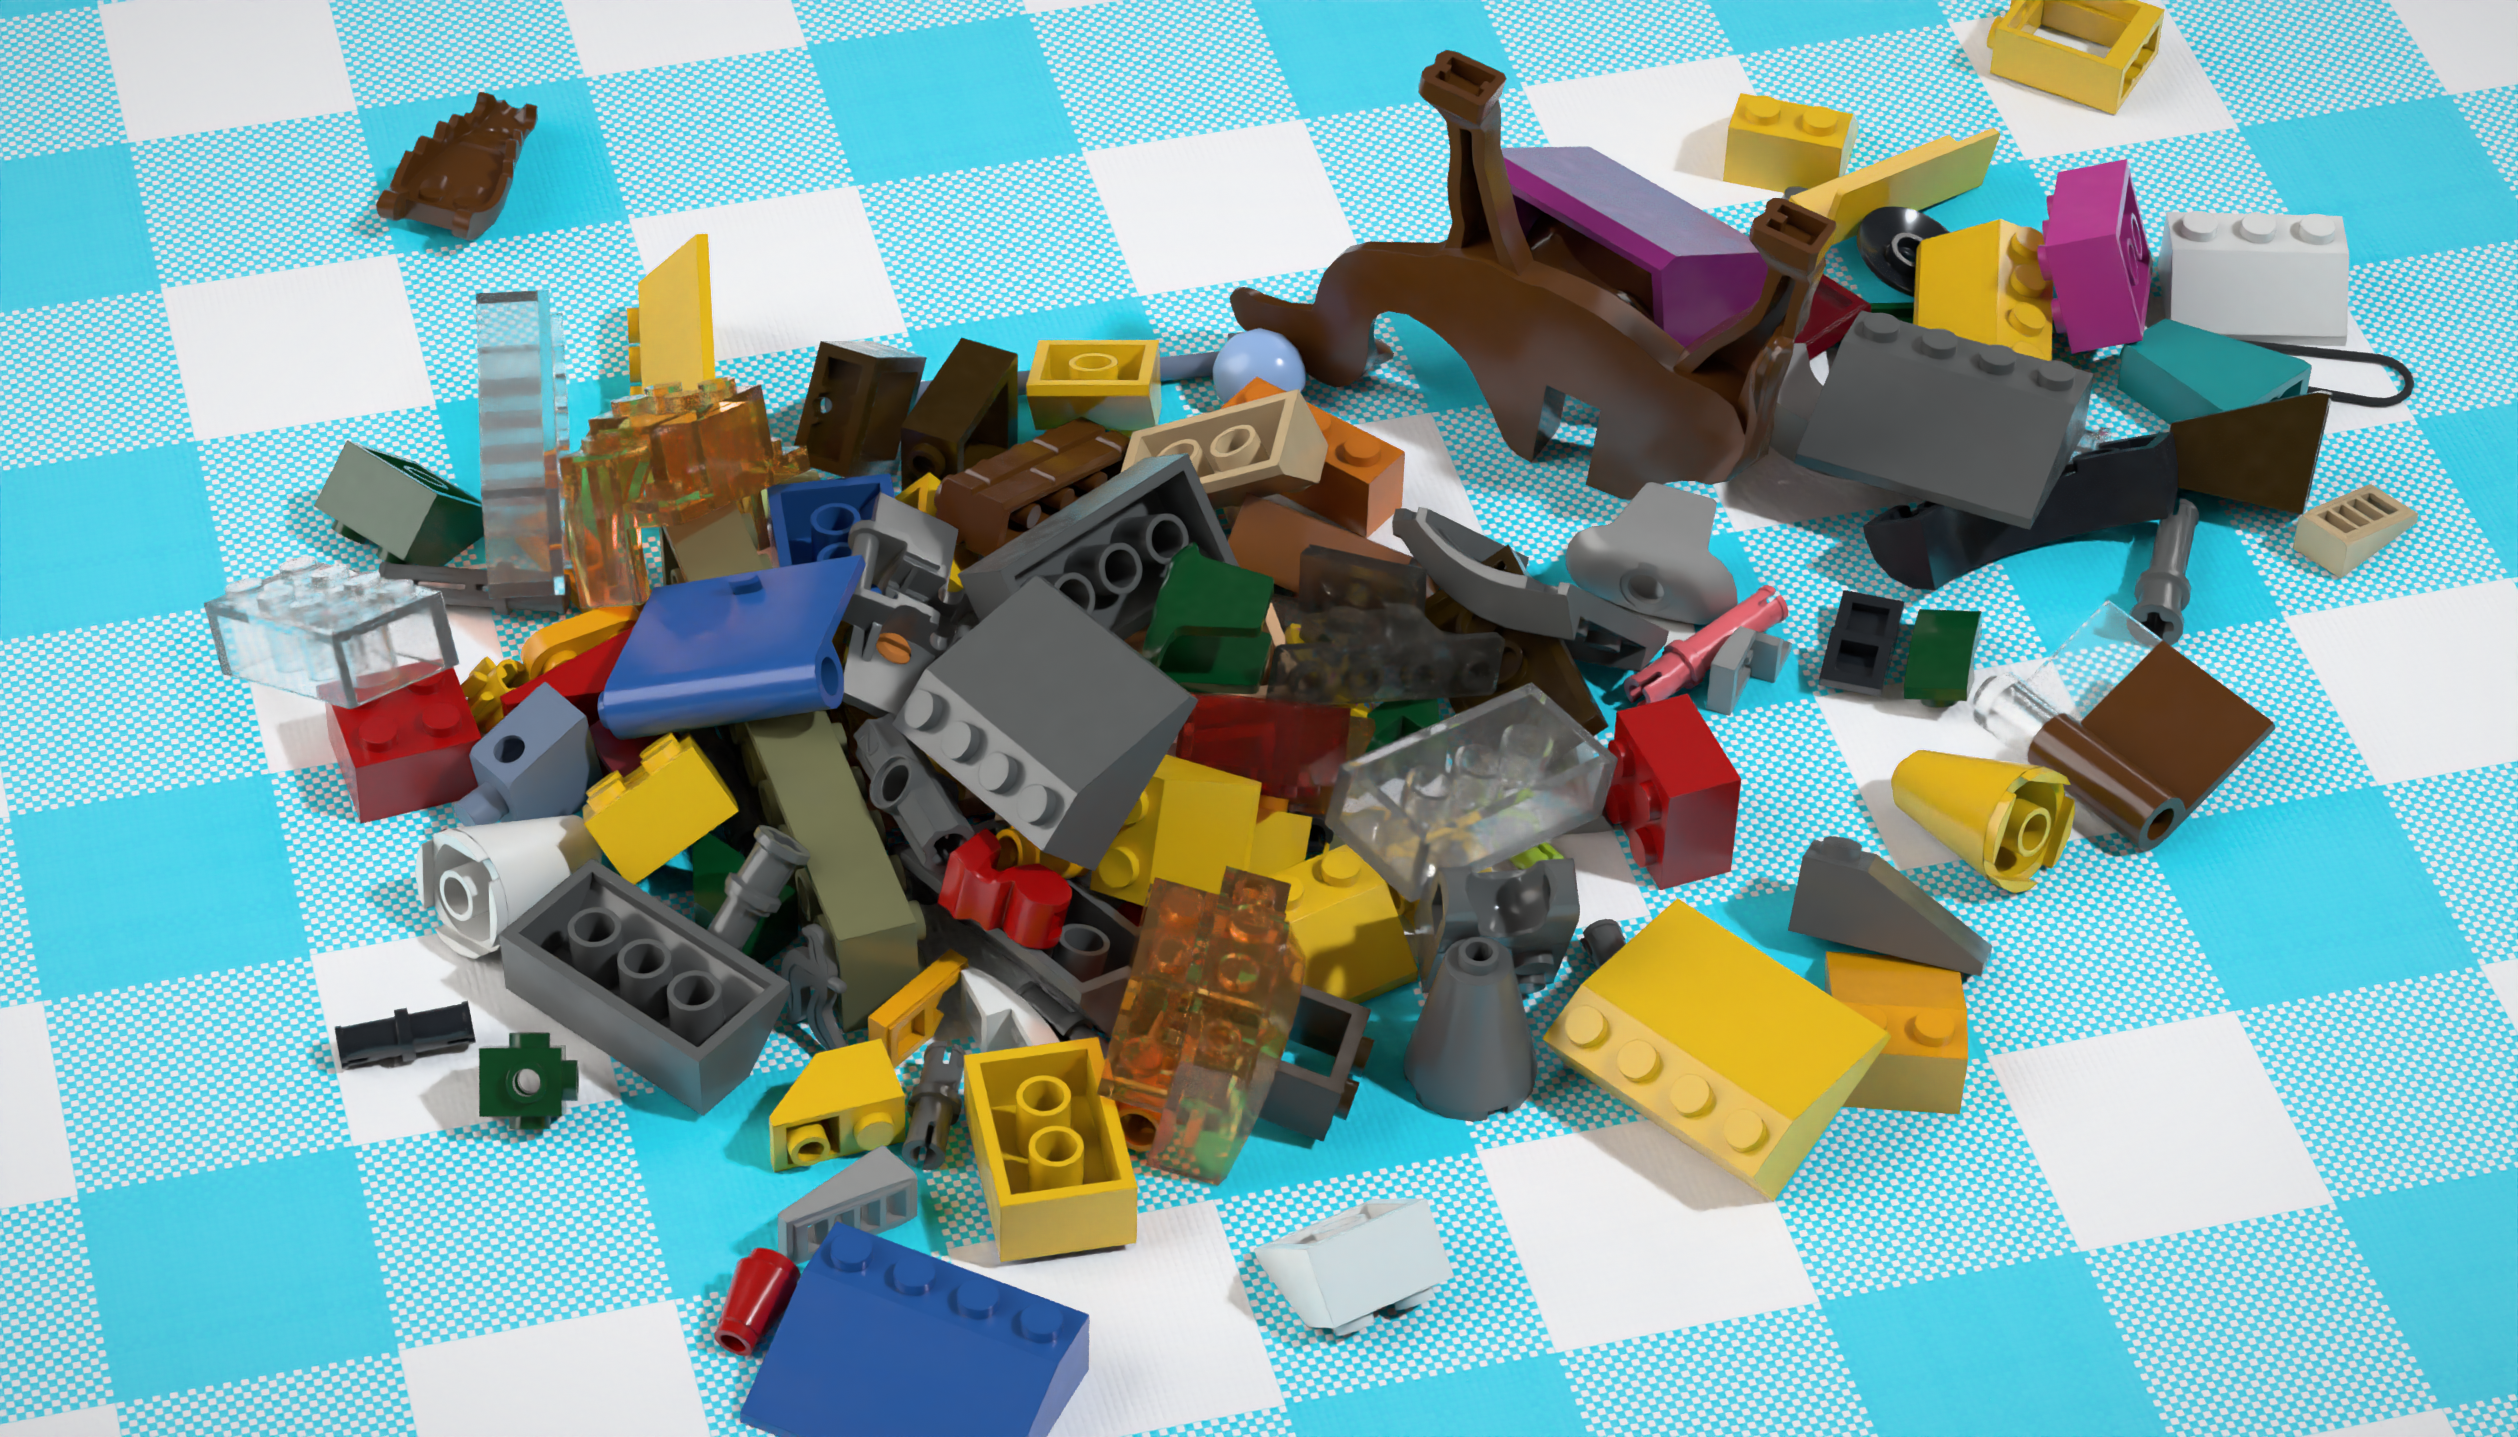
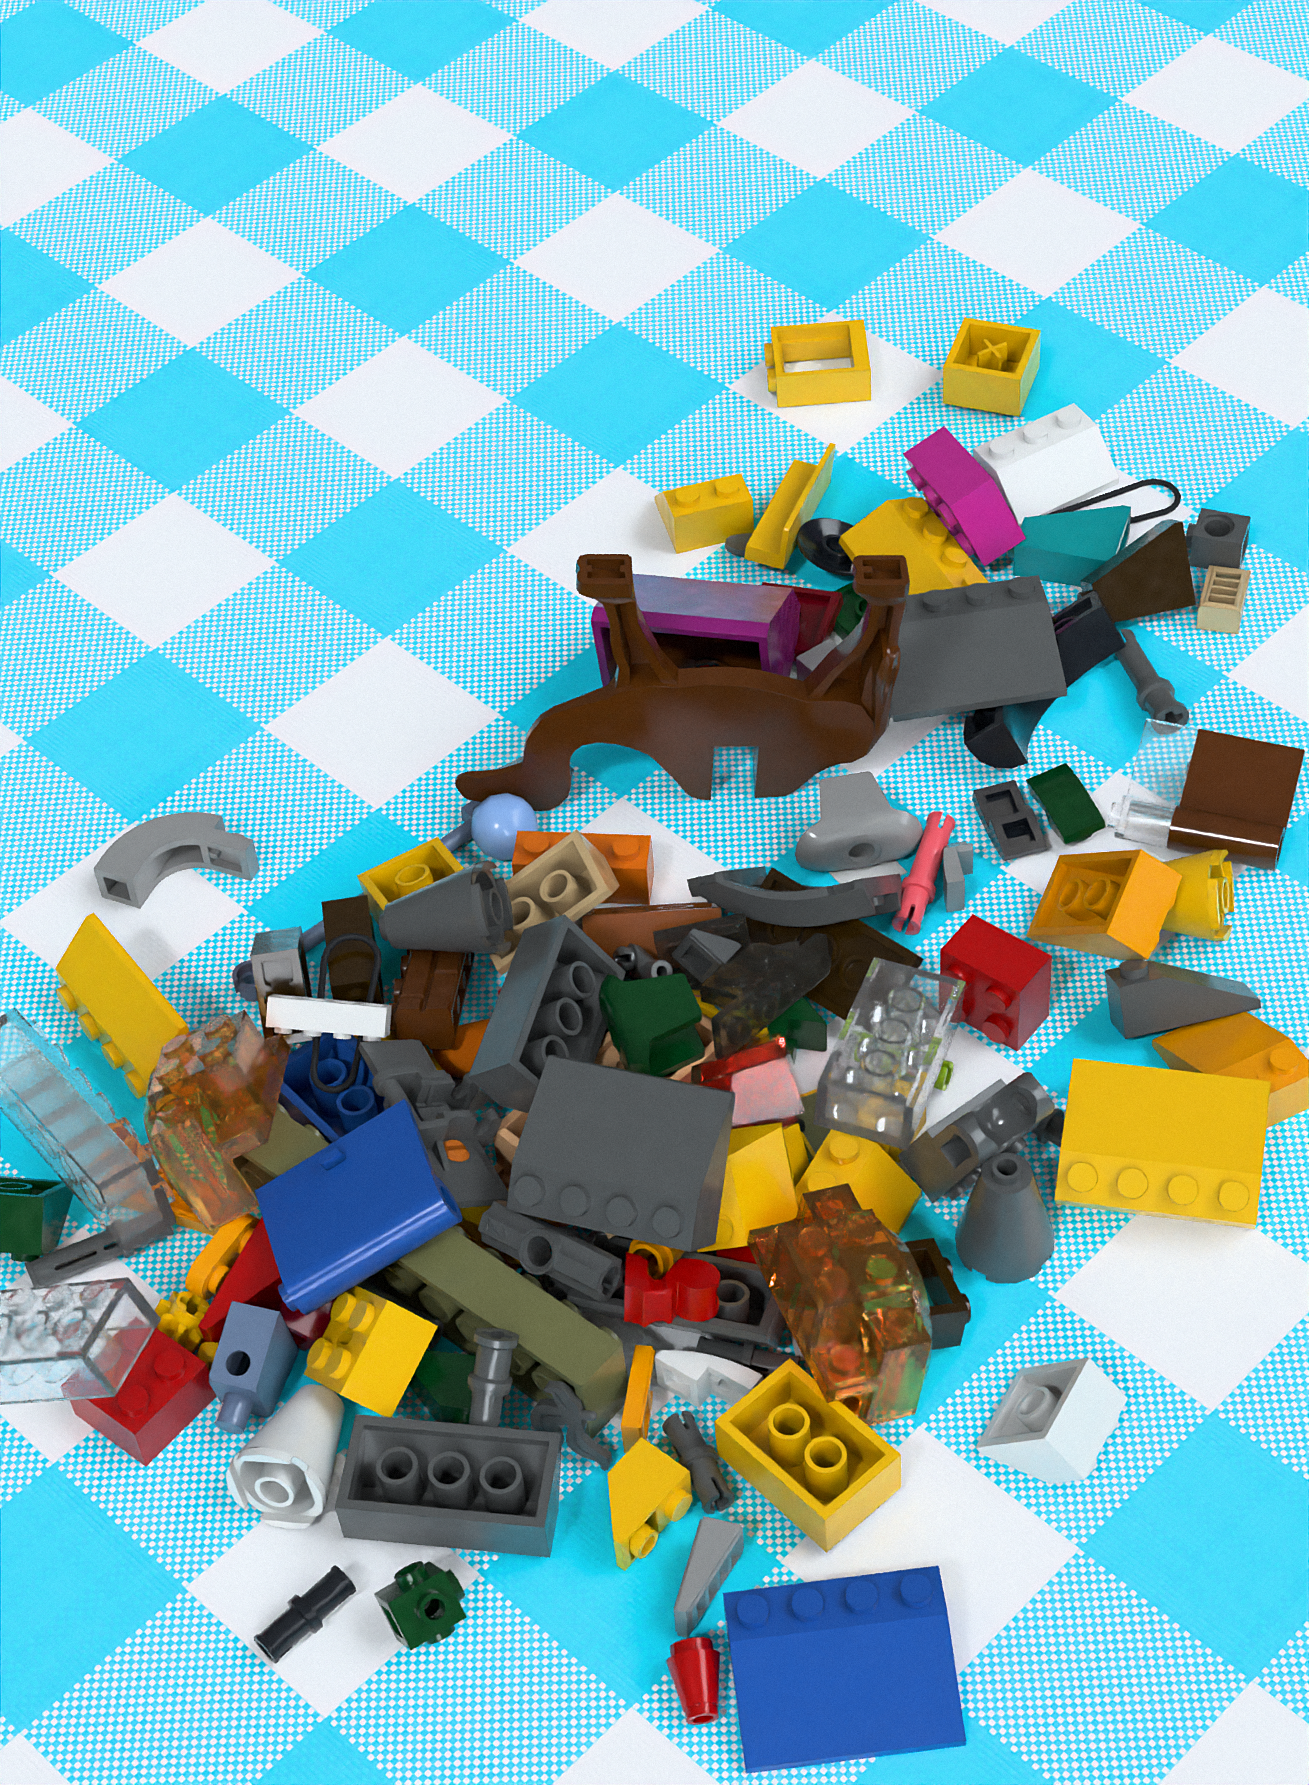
camera: 25 degrees left, 5 degrees up
(865, 221) = (169, 845): none -> light grey arch
(866, 449) = (329, 1016): none -> white piece
(879, 433) = (321, 992): none -> black piece
(1094, 413) = (453, 914): none -> dark grey cone
(1281, 567) = (640, 962): none -> dark grey arm
(1347, 584) = (705, 953): none -> dark grey slope
(1878, 772) = (1106, 903): none -> light orange slope
(2285, 134) = (991, 366): none -> yellow brick
(2403, 458) = (1218, 539): none -> dark grey brick

